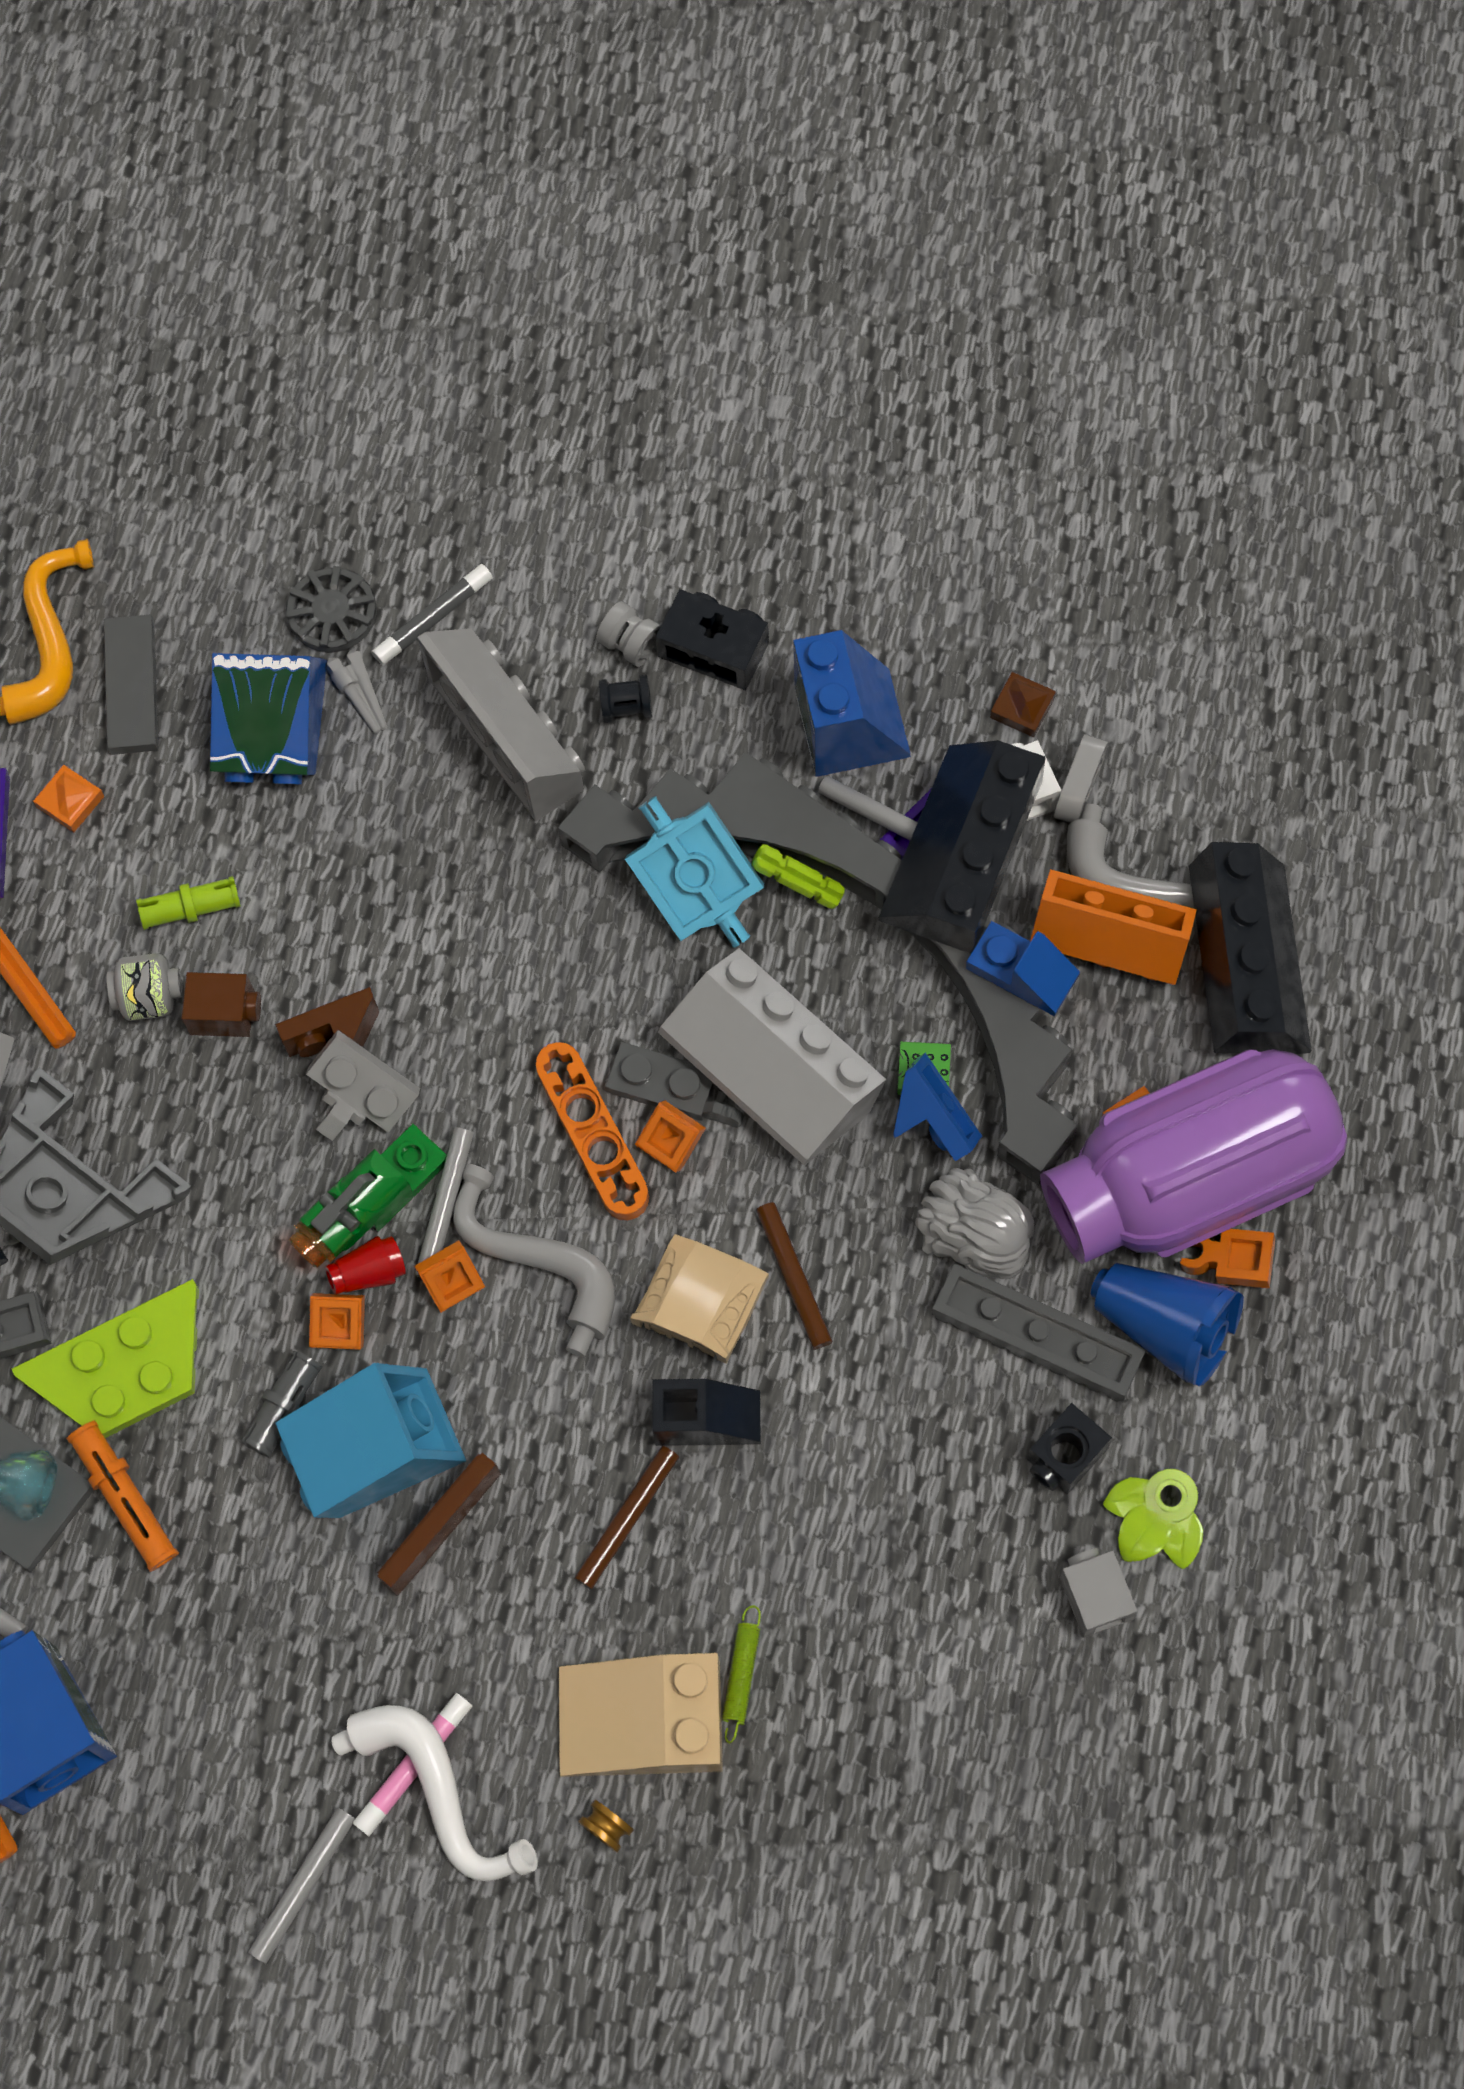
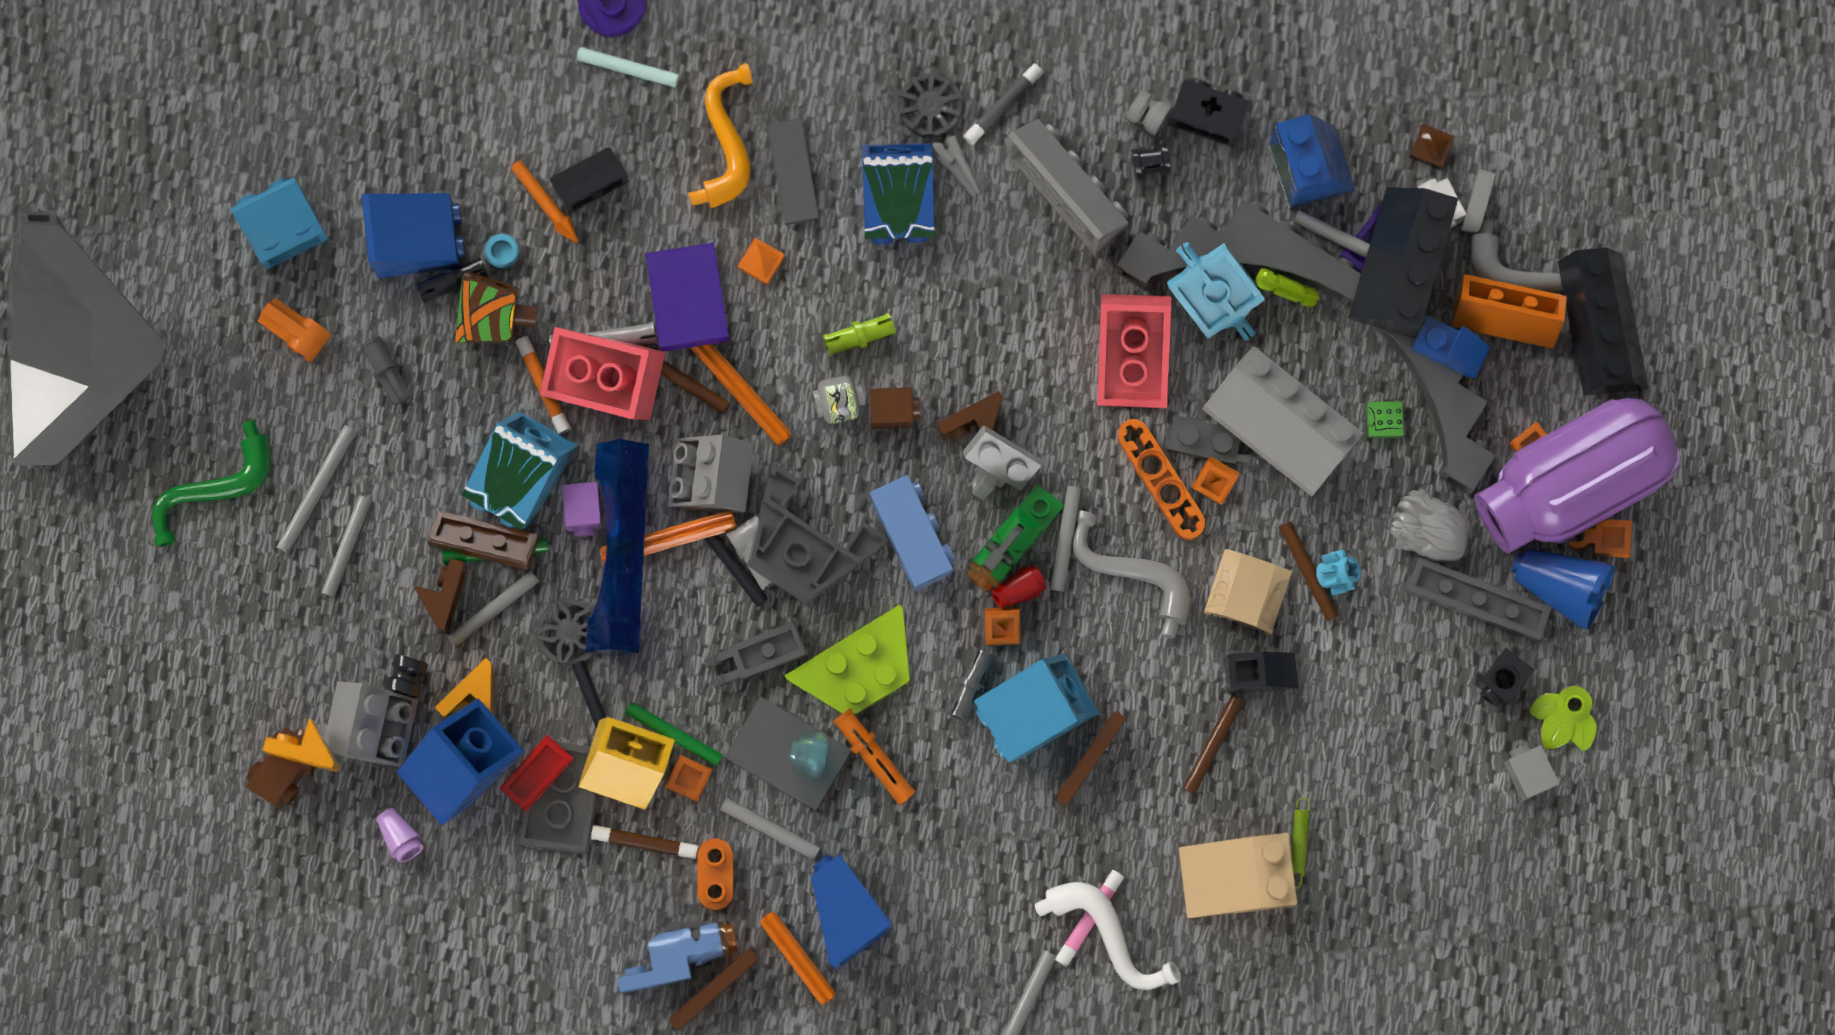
camera: 10 degrees left, 10 degrees up
(223, 1178) = (912, 532): none -> medium blue brick
(449, 1276) = (1076, 589): orange tile -> none
(572, 949) = (1134, 350): none -> coral slope
(606, 1825) = (1222, 948): pearl gold bush -> none
(834, 1277) = (1338, 572): none -> medium azure gear
(930, 1099) = (1396, 446): blue slope -> none

